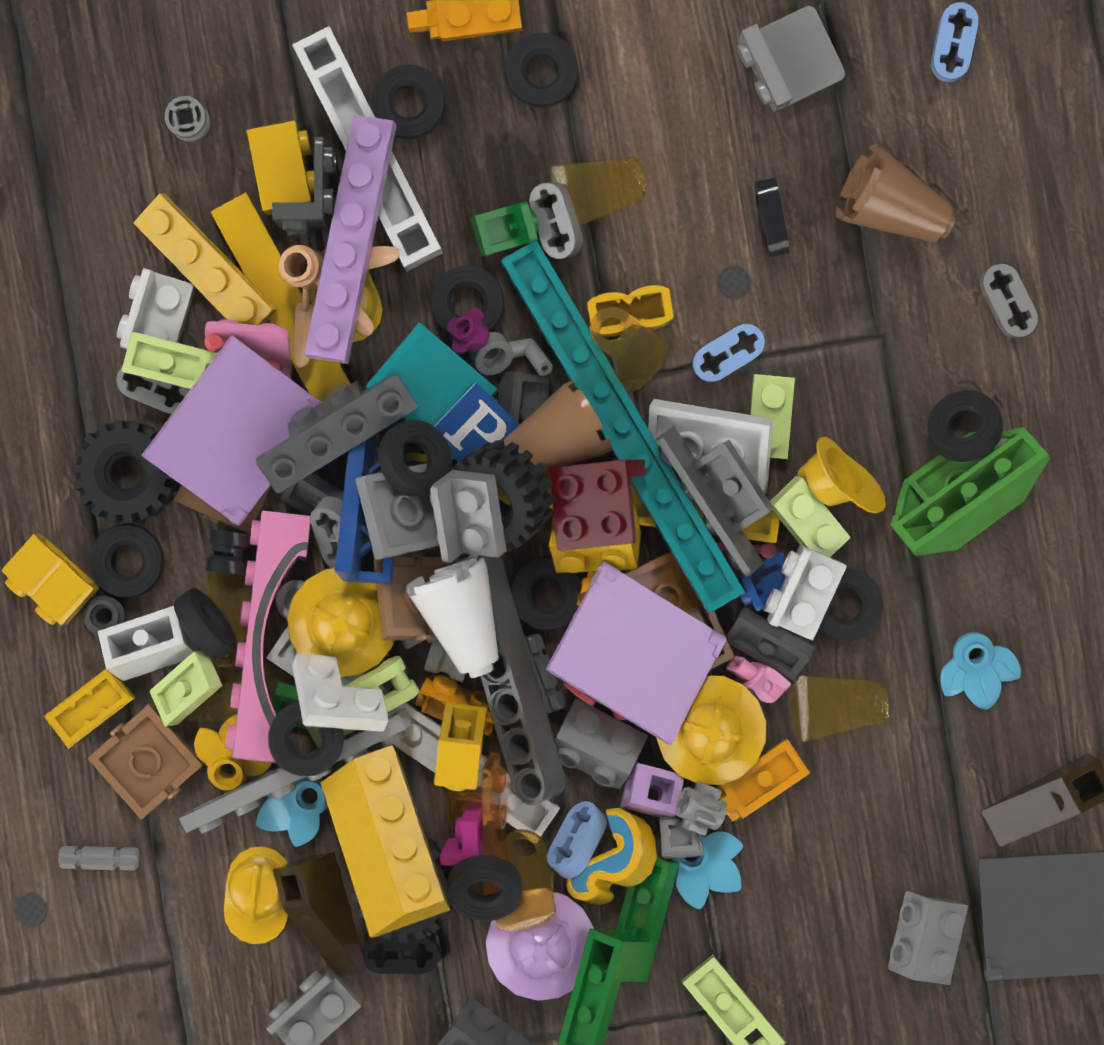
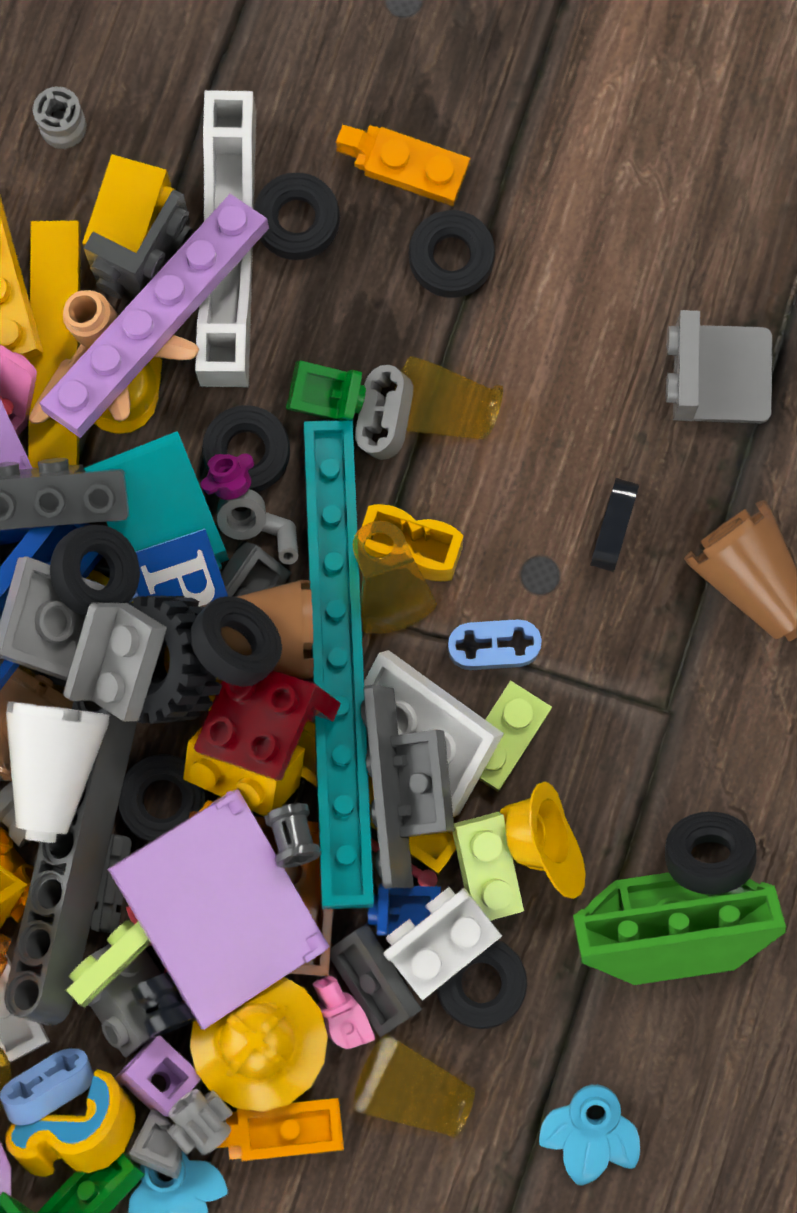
camera: 25 degrees right, 10 degrees down
(542, 476) = (223, 660): none -> black tyre
(572, 747) = (95, 975): none -> yellowish green plate
(631, 742) = (162, 1004): none -> black wheel
(661, 573) = (292, 835): none -> dark grey bush

